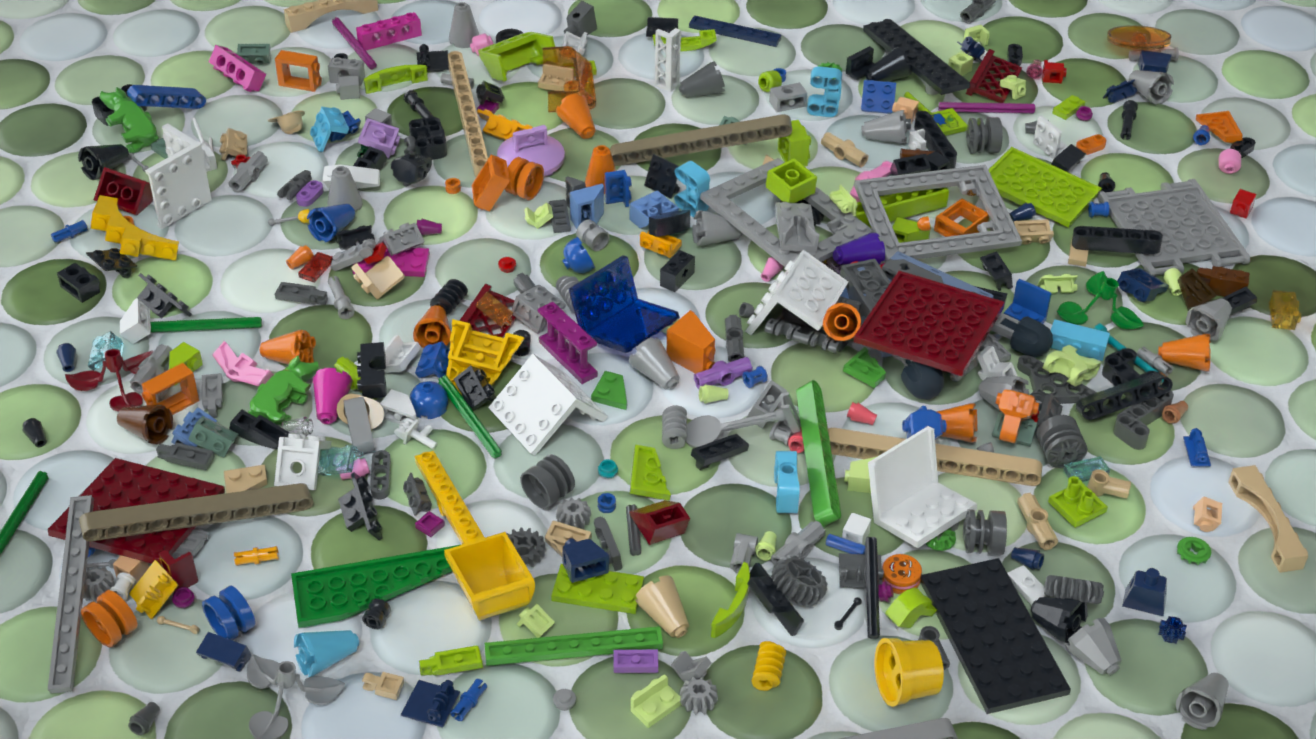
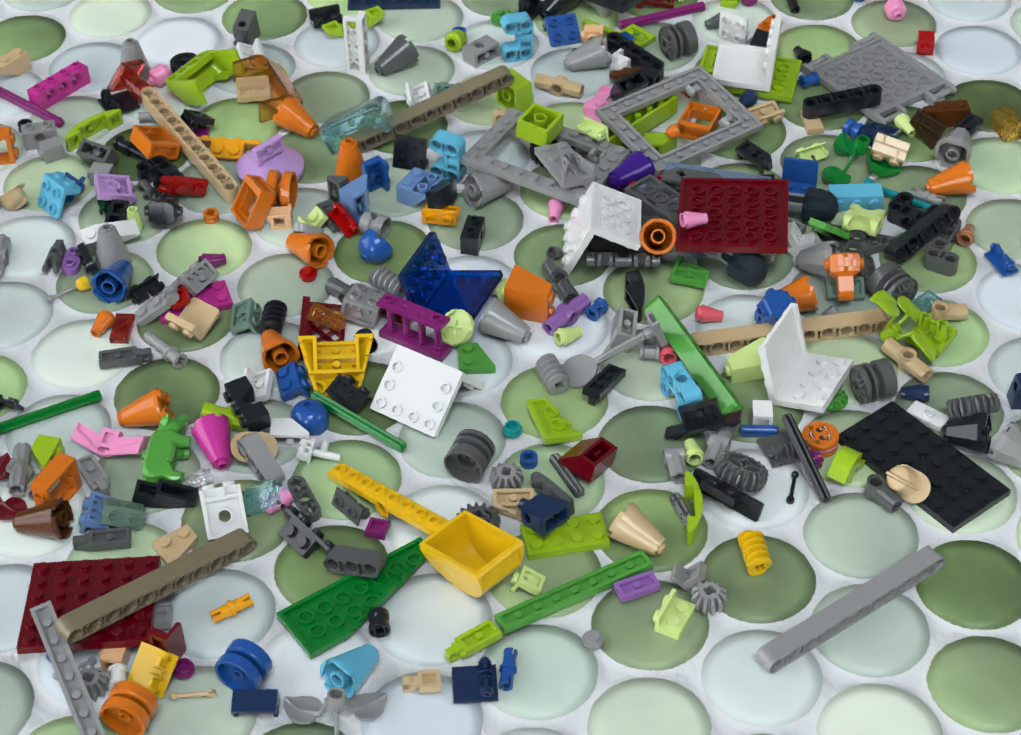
camera: 20 degrees left, 0 degrees up
(320, 193) = (89, 264): none -> black plate
(380, 164) = (132, 213): none -> yellowish green cone
(383, 101) = (95, 152): none -> dark grey brick
(385, 548) = (355, 561): none -> dark grey beam
(426, 287) = (244, 316): none -> sand green bracket
(439, 104) = (155, 141): none -> orange window
(440, 150) = (183, 185): none -> red hinge
(448, 38) = (128, 78): none -> clear red plant
(512, 204) = (280, 217): none -> light nougat brick
(521, 241) = (312, 248): none -> orange cone
(527, 224) = (306, 228): none -> light grey beam
(566, 222) = (343, 220): none -> red hinge
(607, 354) = (459, 328): none -> yellowish green tile
(644, 129) = (373, 111): none -> clear light blue windscreen
(704, 121) = (417, 93): none -> white bracket
(724, 594) = (680, 507): none -> dark grey axle
(789, 514) = (702, 417): none -> black bracket
(801, 371) = (635, 292): none -> black slope
(881, 314) = (691, 219): none -> bright pink cone
(907, 670) = (876, 516): yellow piece -> none
(962, 647) = (908, 483): none -> tan piece
(1023, 361) = (825, 228): none -> bright green wing
(1033, 458) = (893, 330): none -> lime plant
(1041, 178) = (746, 64): none -> white bracket
(1114, 268) = (852, 128): none -> blue wheel
(1138, 301) = (889, 149): none -> tan brick

